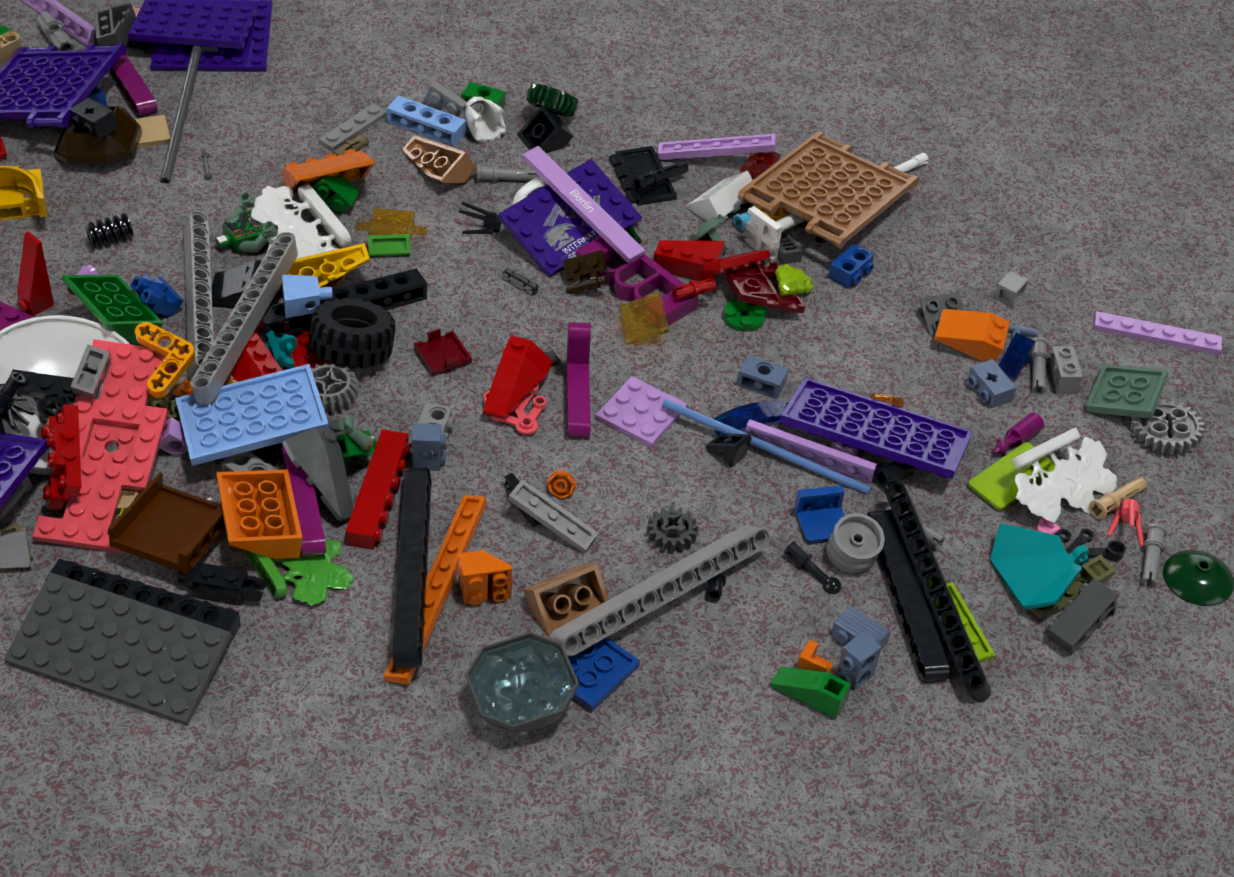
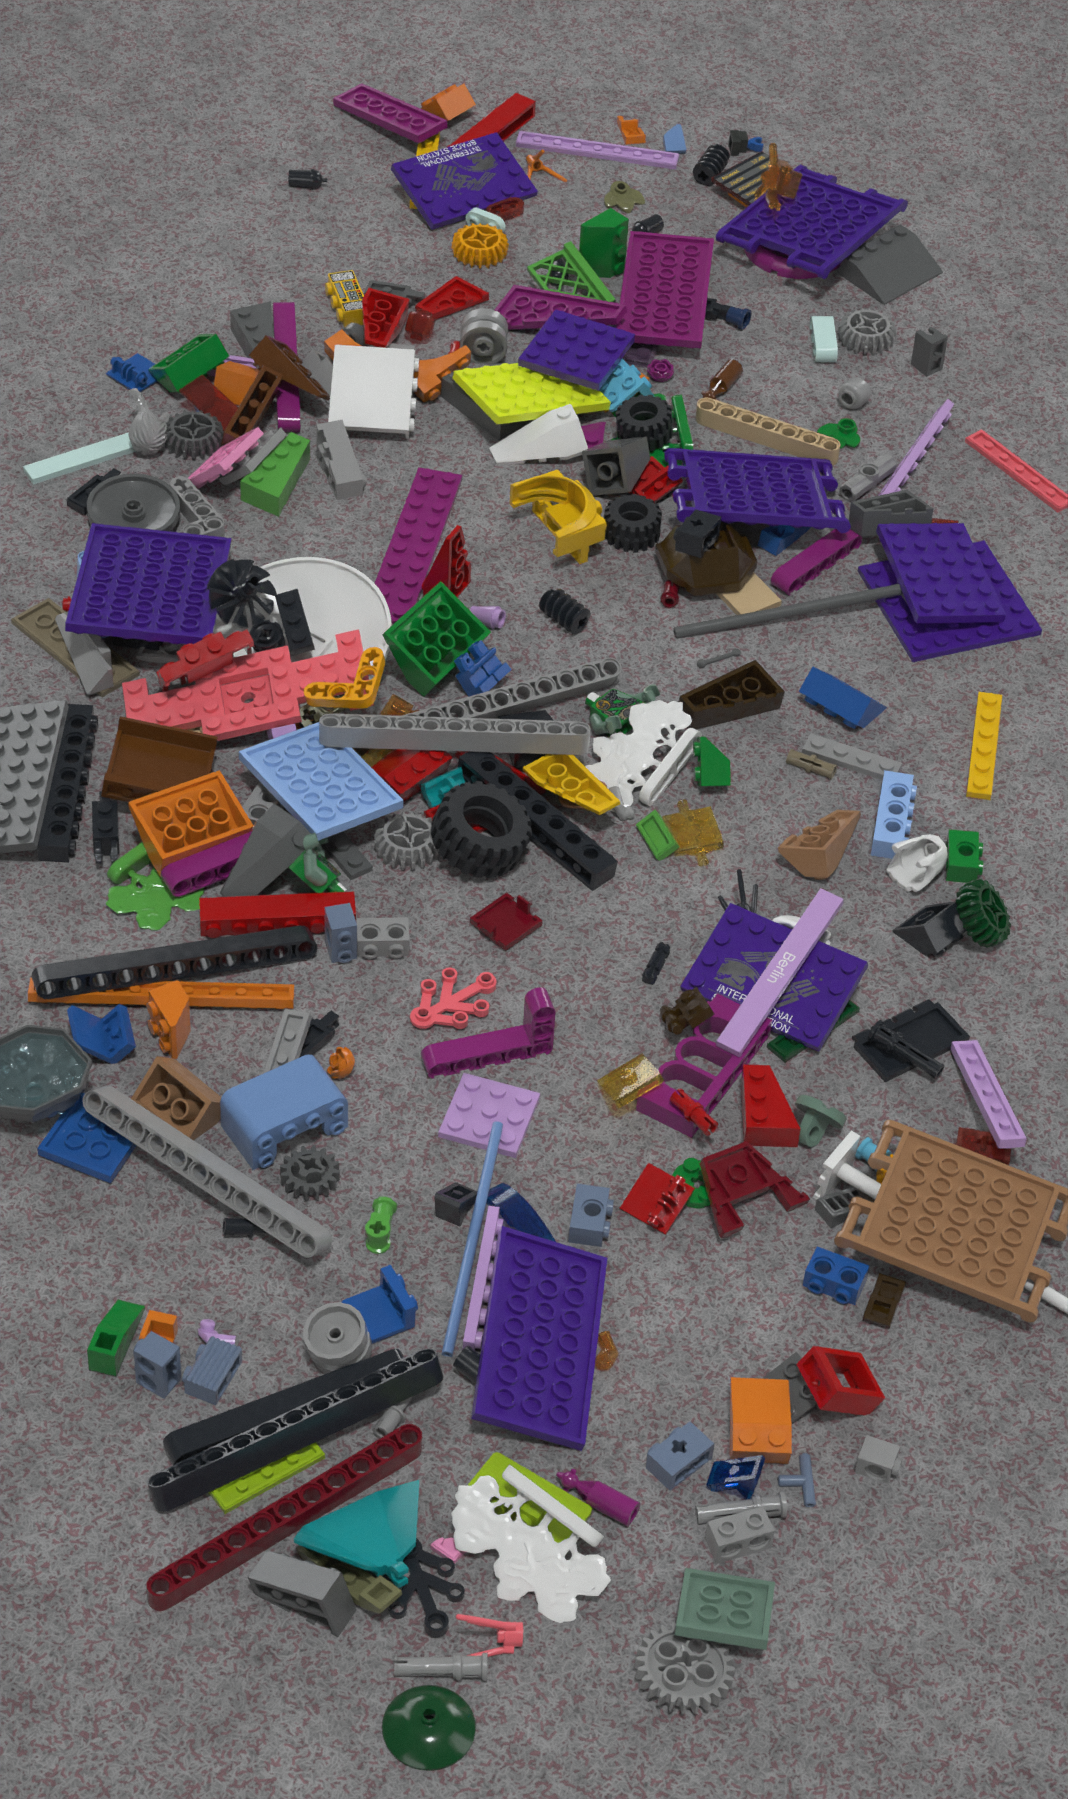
camera: 75 degrees right, 0 degrees up
(31, 156) = (632, 522): none -> black tyre
(91, 372) = (307, 639): light grey brick -> none
(123, 171) = (670, 597): none -> dark red pin
(261, 160) = (733, 696): none -> dark brown wedge
(293, 112) = (840, 699): none -> blue slope
(302, 294) = (508, 769): light blue torso -> none
(350, 165) = (739, 744): orange slope -> none
(373, 61) = (984, 746): none -> yellow plate
(440, 97) = (920, 809): light grey plate -> none
(475, 628) = (104, 1038): none -> blue bracket
(495, 173) = (842, 919): light grey pin -> none
(518, 373) = (488, 982): red wedge -> none
(614, 526) = (280, 1107): none -> medium blue windscreen
(721, 197) = (879, 1108): white slope -> none
(736, 261) = (778, 1153): red plate -> none
(739, 498) = (379, 1225): none -> bright green connector
(757, 335) = (657, 1198): none -> red hinge
(793, 281) = (768, 1213): lime rock -> none
(818, 630) = (207, 1330): none -> lavender arm
(830, 584) = (284, 1338): black pin -> none
(882, 254) = (884, 1300): none -> dark brown slope
(945, 281) = (830, 1395): none -> red window
(1013, 619) = (278, 1527): none -> dark red beam
(1111, 500) = (519, 1611): tan pin -> none
(1158, 333) = (878, 1652): lavender plate -> none

